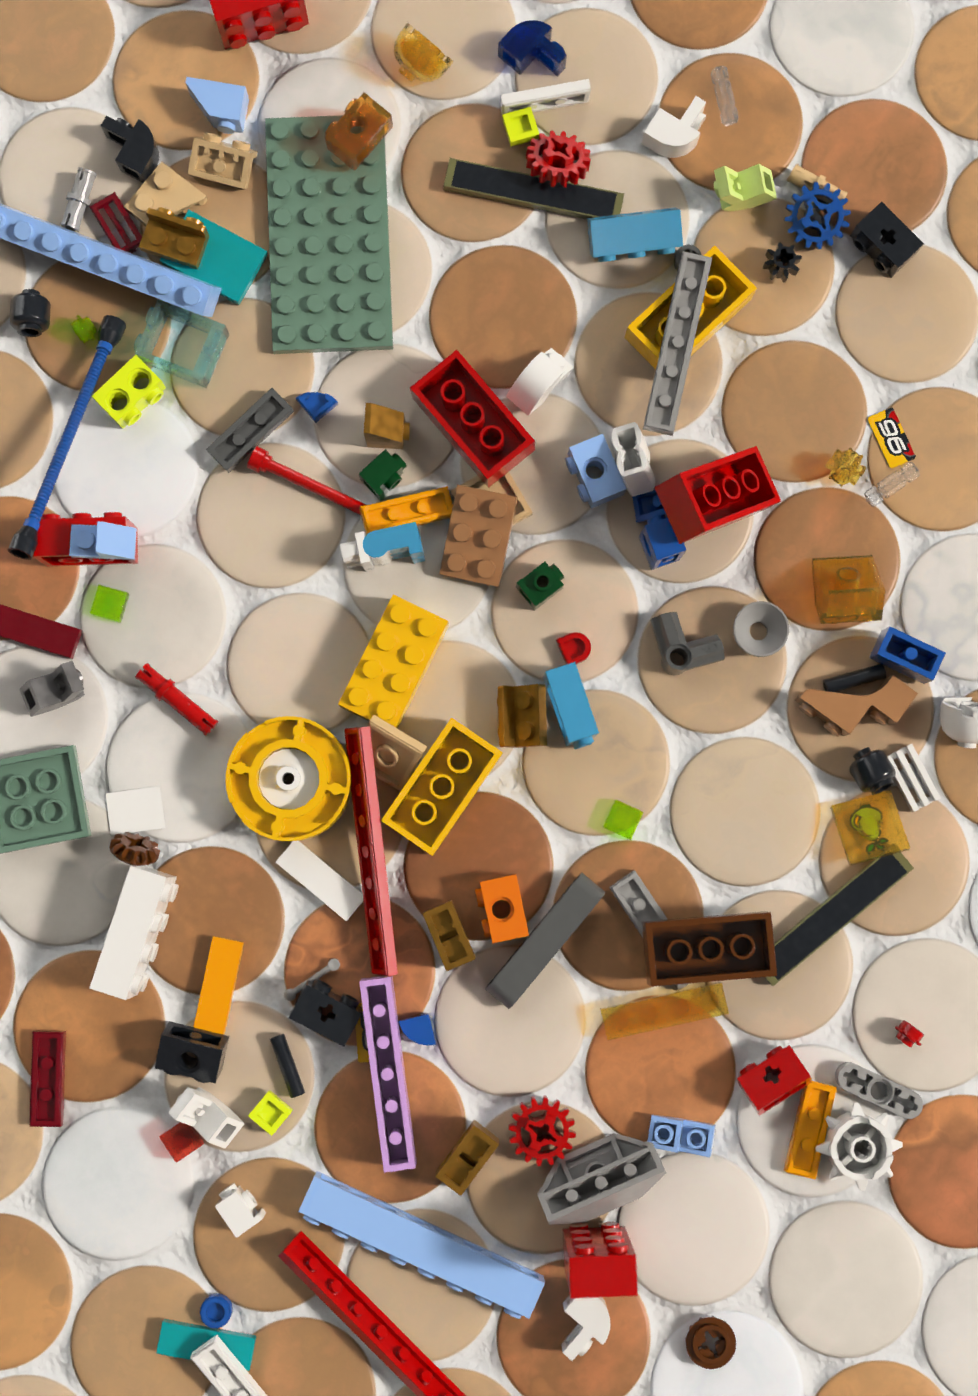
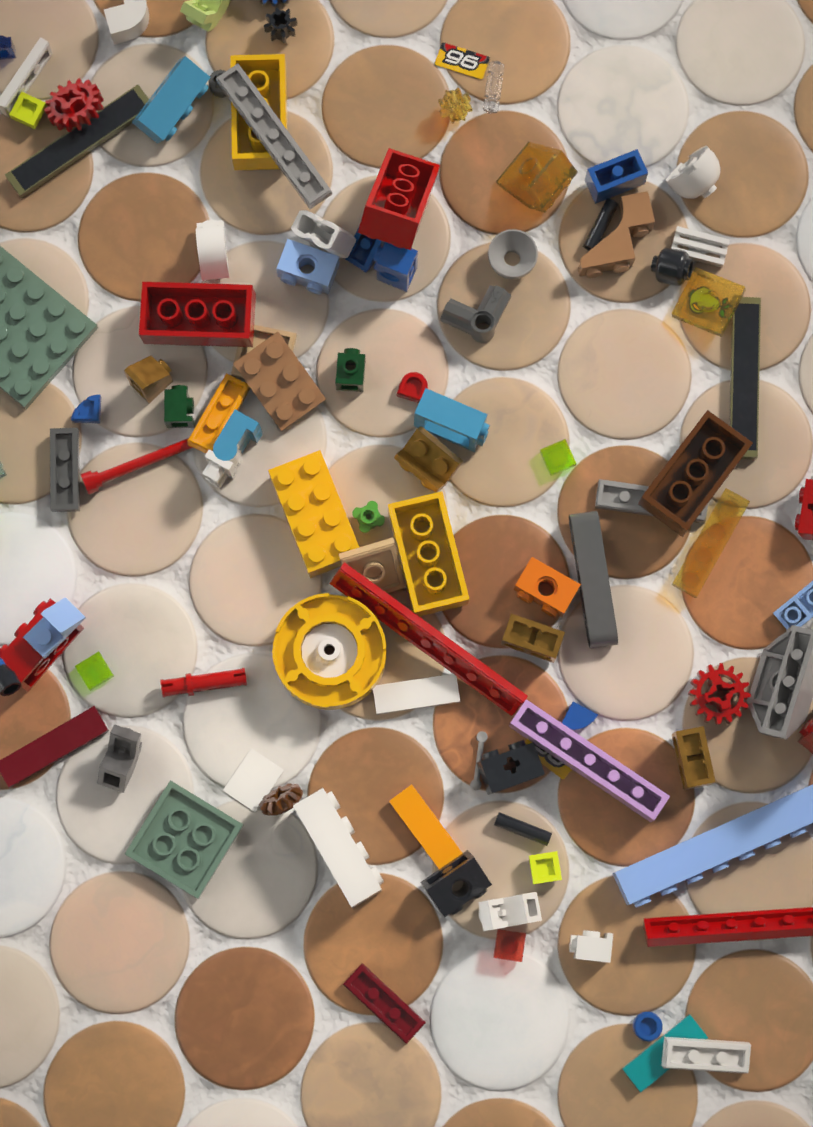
camera: 45 degrees left, 5 degrees down
(435, 717) = (368, 524): none -> bright green plate

